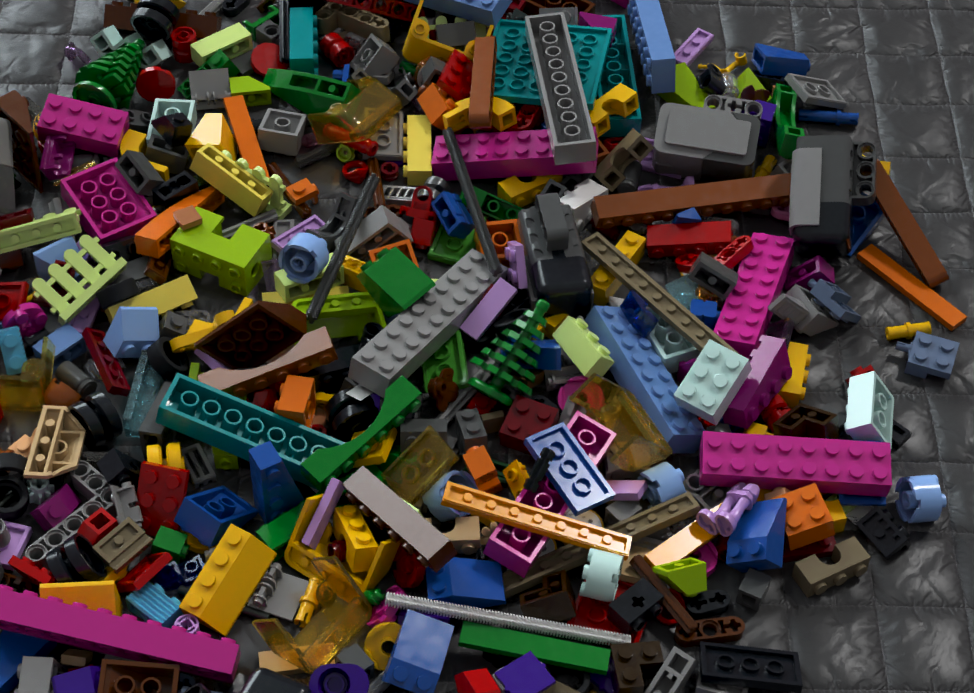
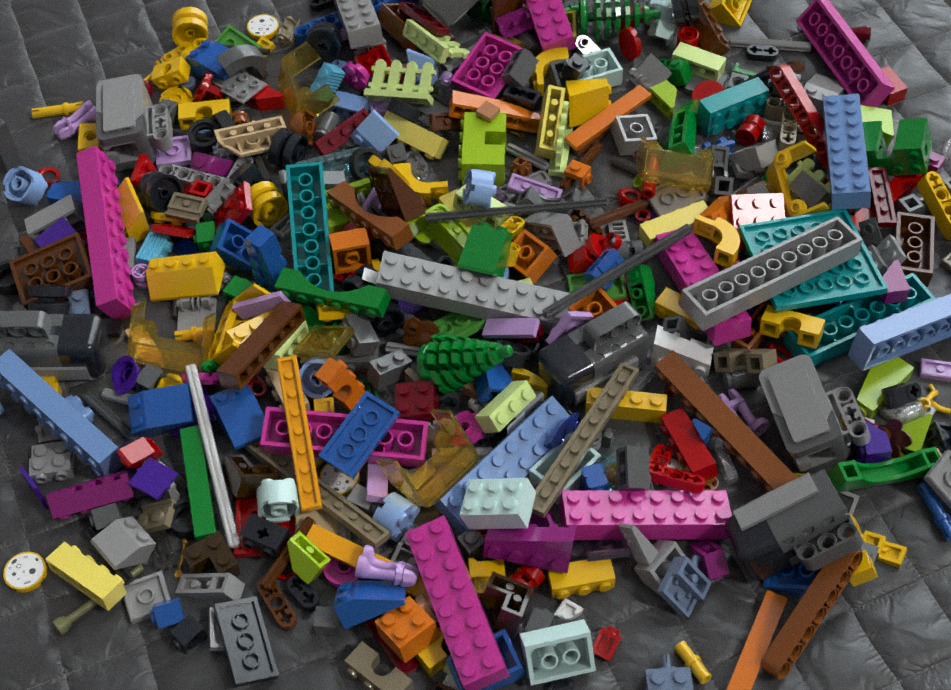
camera: 70 degrees right, 5 degrees up
(483, 82) = (747, 222): dark orange beam -> none
(539, 470) = (340, 412): black axle -> none
(816, 398) = (568, 611): none -> white tile

